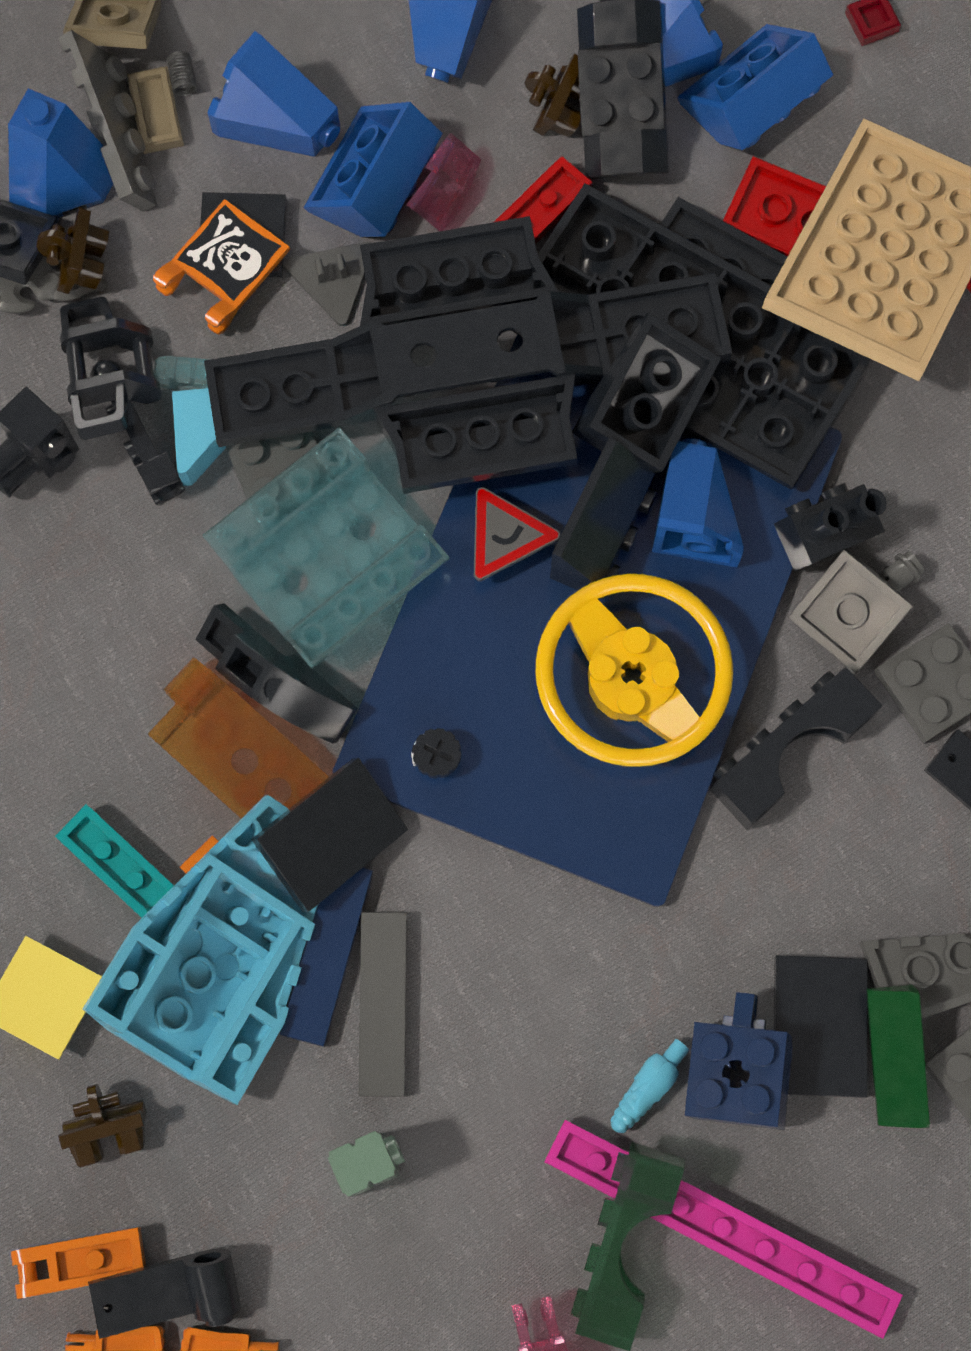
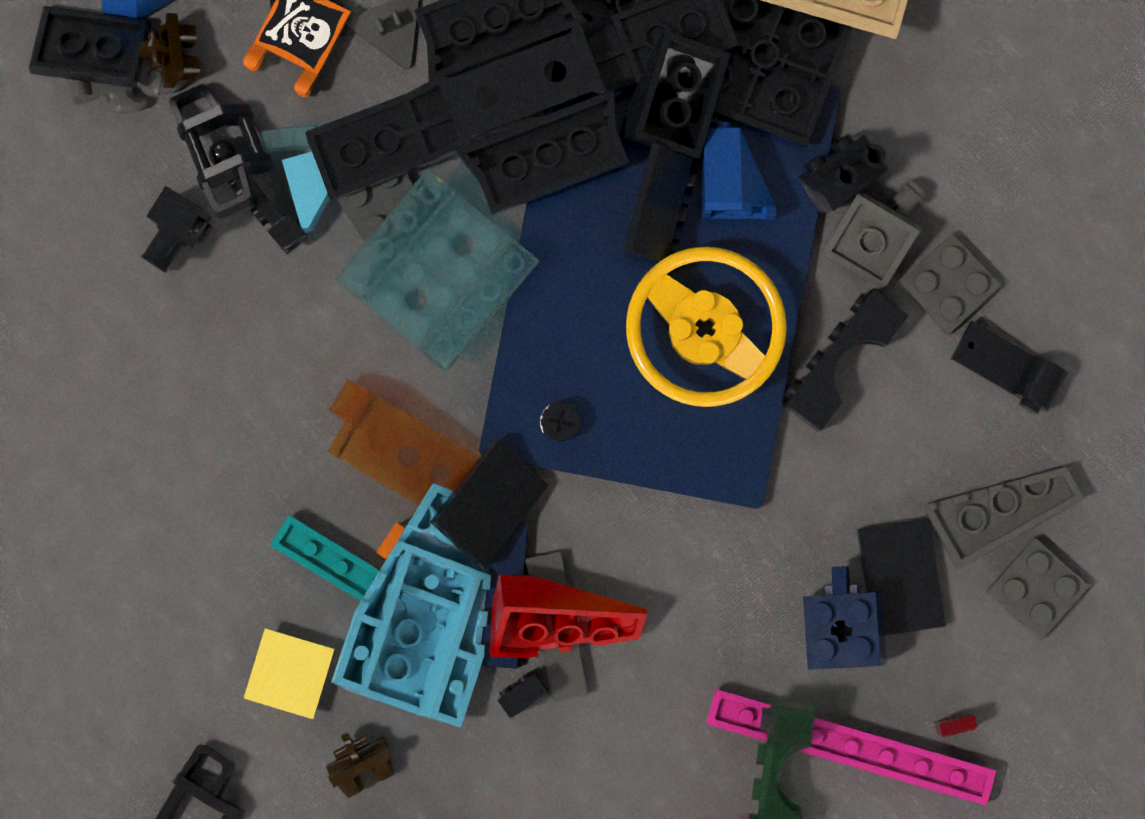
camera: 15 degrees left, 10 degrees up
(274, 680) = (416, 386): black slope -> none
(321, 1080) = (522, 695): none -> black piece
(367, 1162) = (572, 751): sand green brick -> none
(374, 986) = (545, 615): none -> red wedge
(505, 534) = (580, 230): piece -> none
(649, 1086) = (776, 650): medium azure piece -> none
(860, 1226) = (956, 725): none -> dark red tile
(898, 1056) = (964, 591): dark green slope -> none

